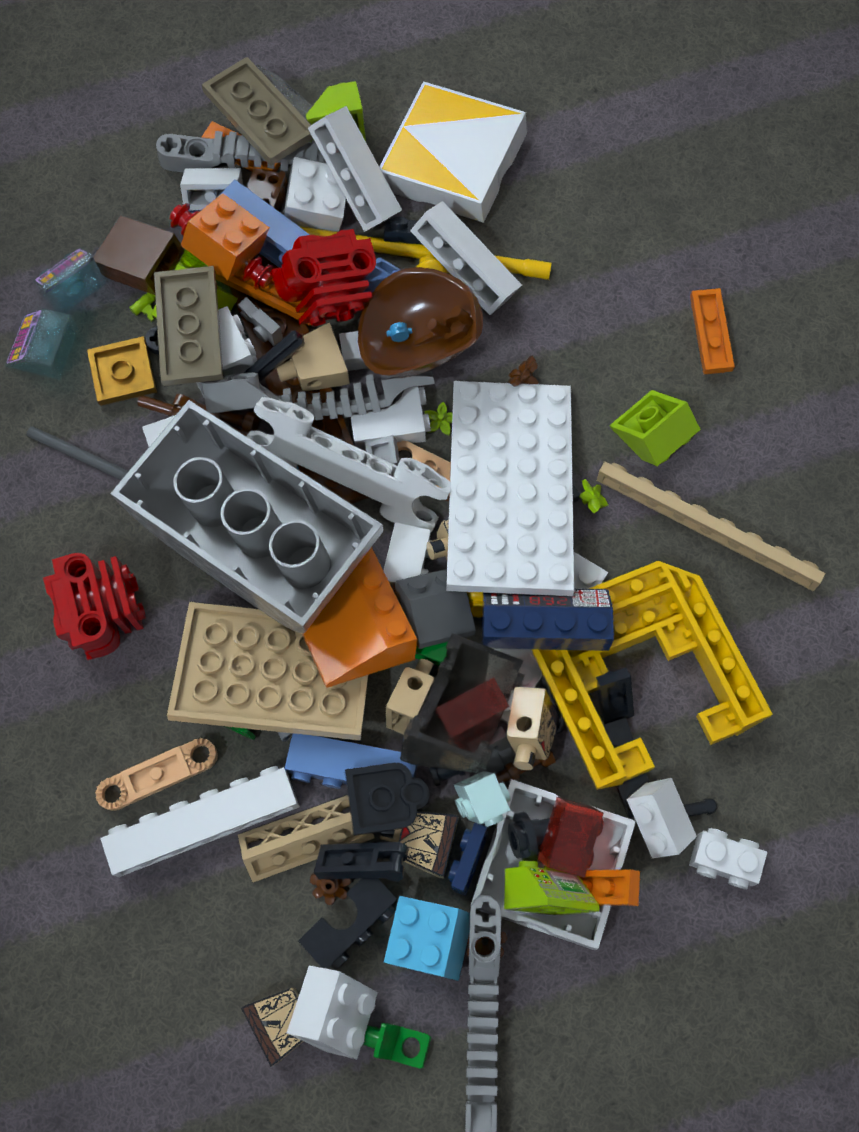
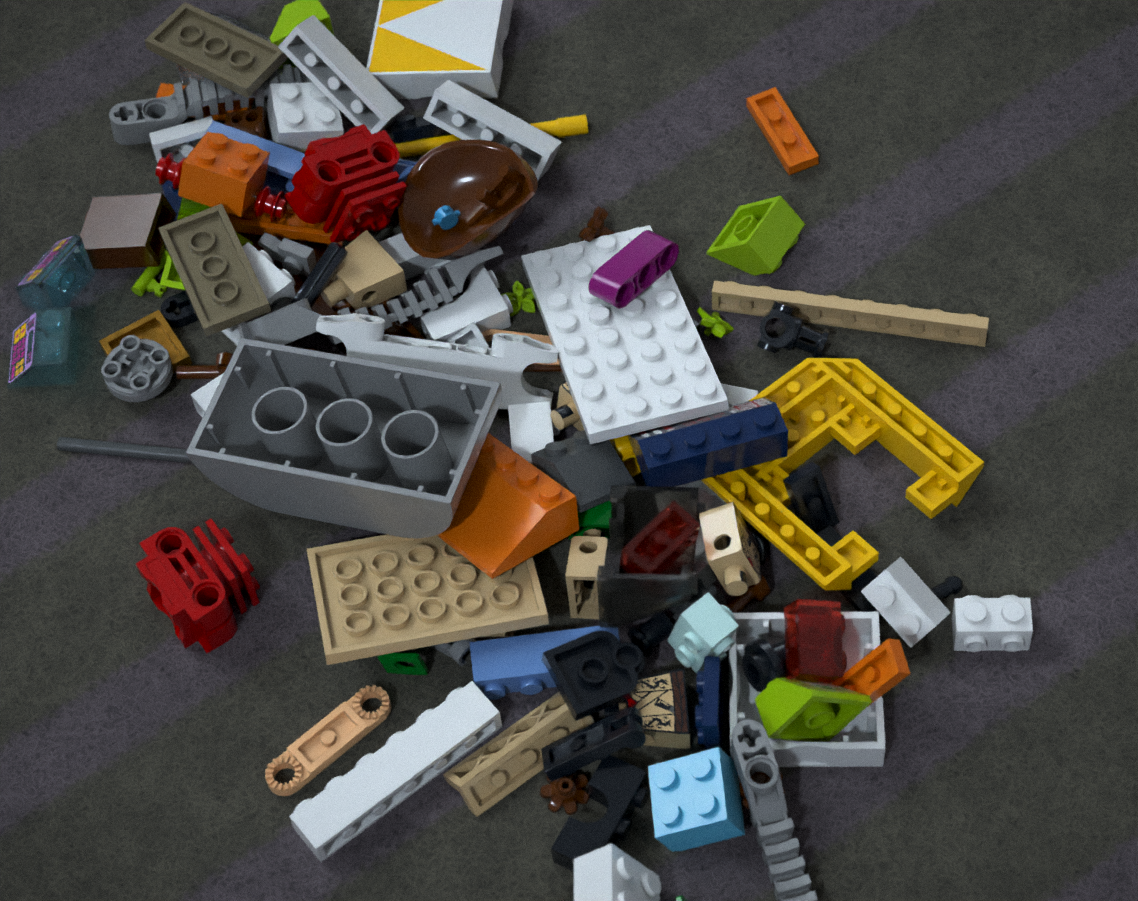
camera: 15 degrees left, 15 degrees down
(108, 388) = (137, 369): none -> light grey tile
(538, 433) = (633, 269): none -> magenta beam
(655, 530) = (791, 335): none -> black connector

